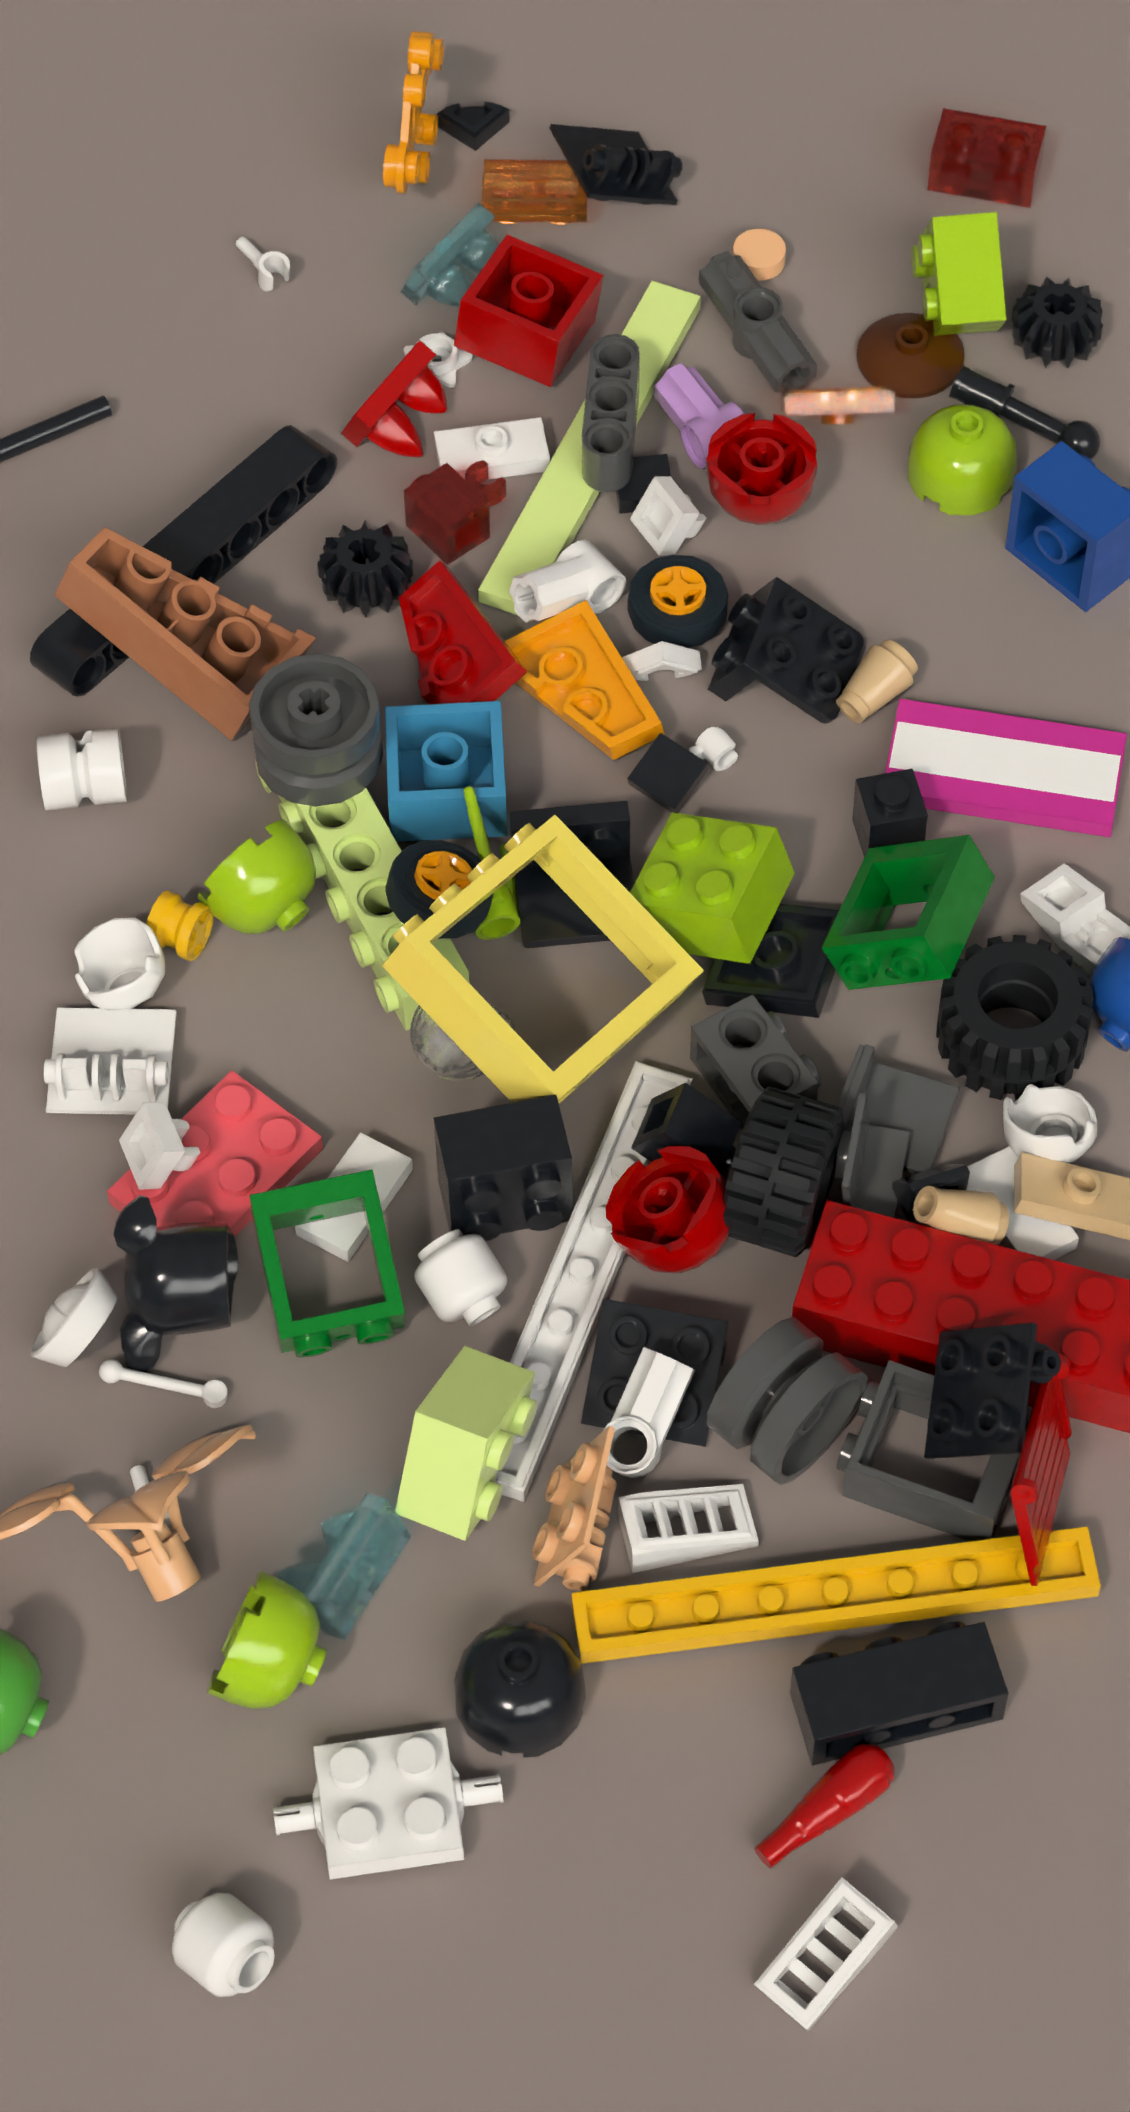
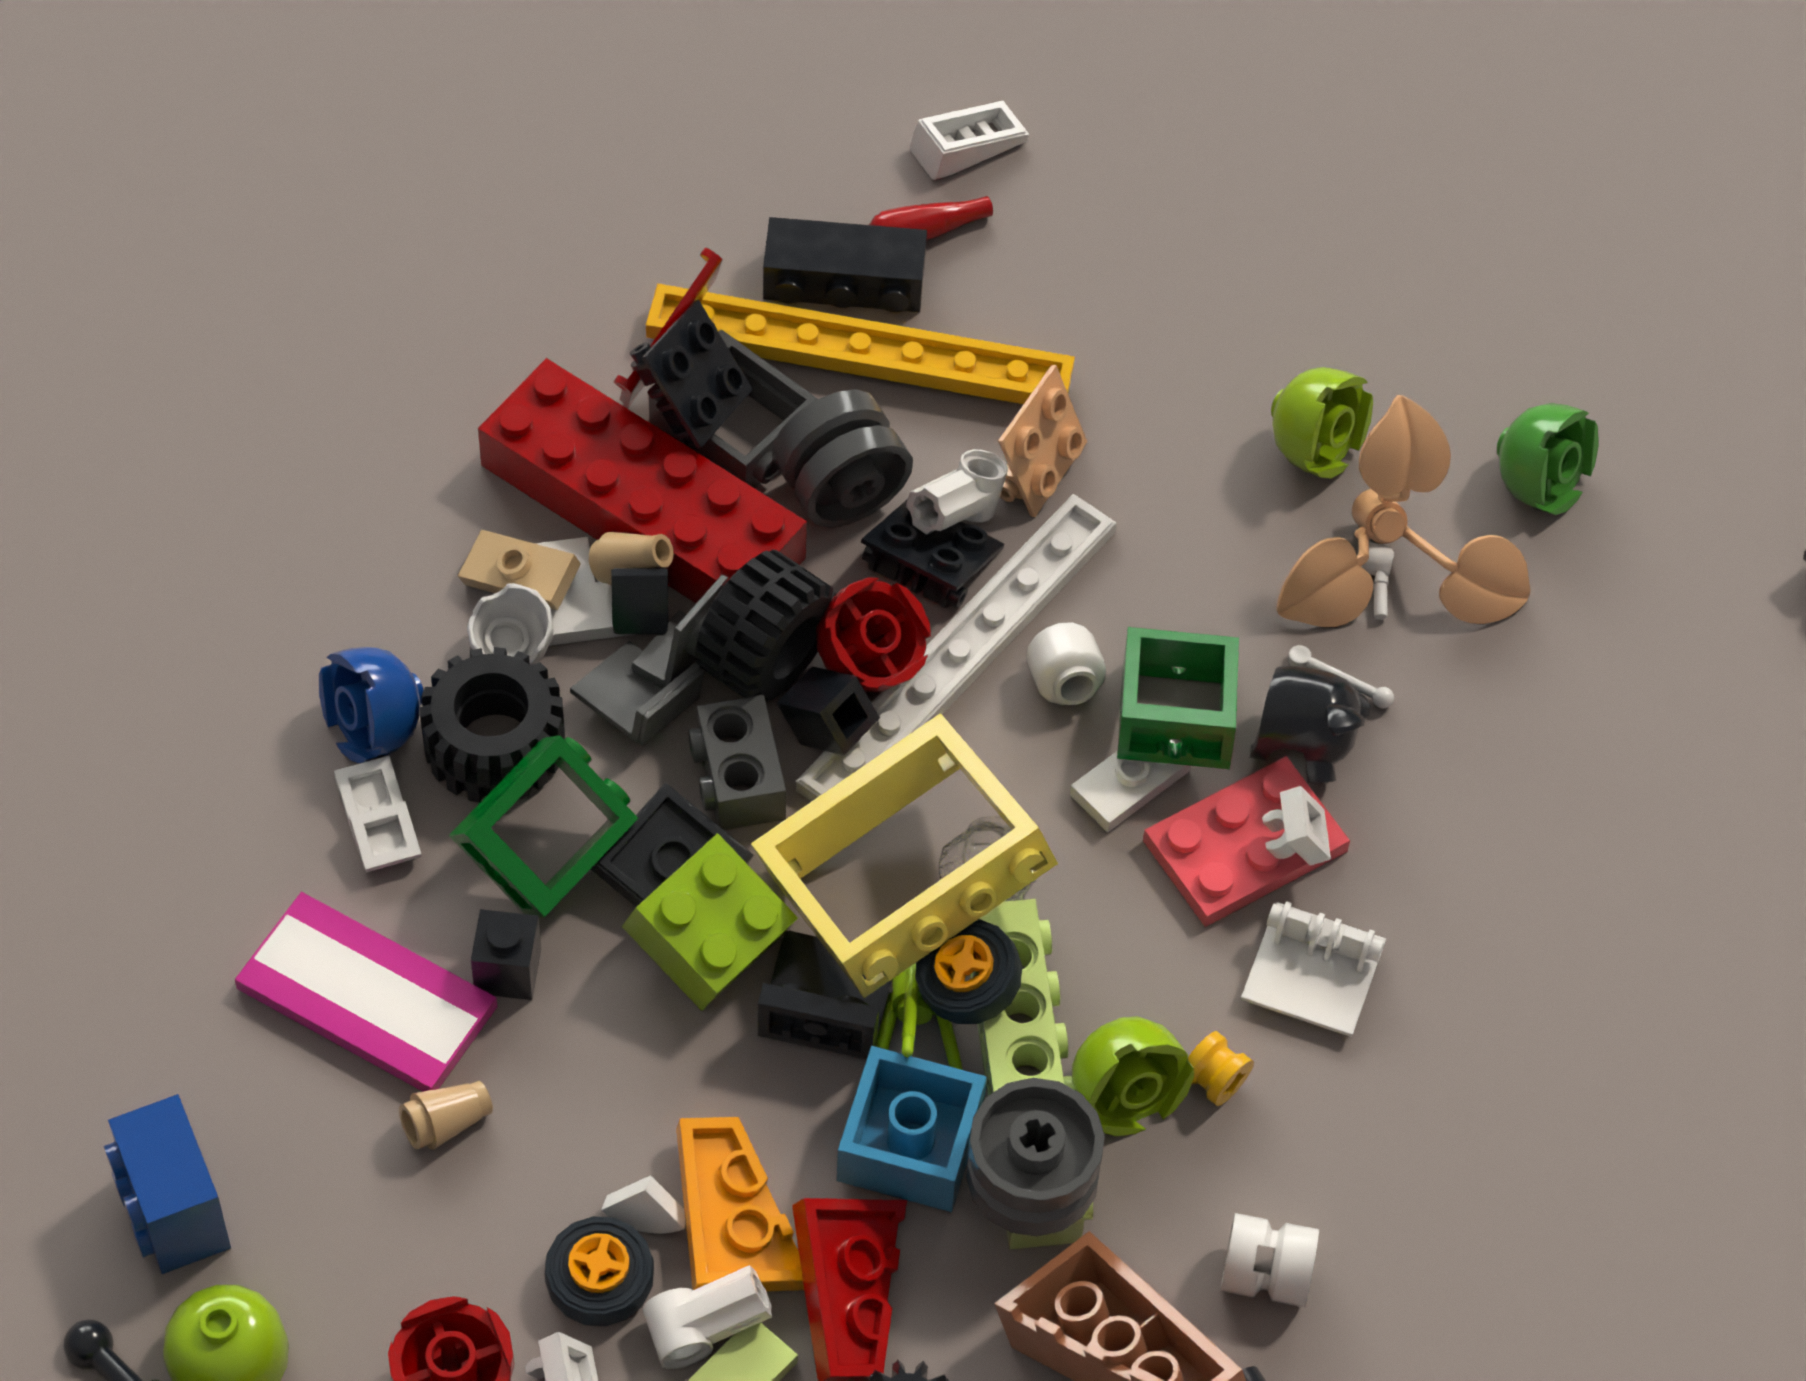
camera: 165 degrees left, 0 degrees up
(74, 1319) = (1409, 720): white hat -> none
(119, 964) = (1285, 1035): white hair -> none
(223, 1945) = (1405, 254): white head -> none
(359, 1558) = (1255, 471): clear light blue tile -> none
(388, 1803) = (1253, 318): white plate -> none
(462, 1440) = (1109, 509): yellowish green brick -> none
(505, 1168) = (1005, 711): black brick -> none
(519, 1689) = (1127, 359): black cylinder -> none
(668, 773) = (691, 1080): black tile -> none
(668, 1549) = (969, 418): white slope -> none
(716, 748) = (634, 1104): white hand -> none
(789, 649) = (524, 1172): black bracket -> none

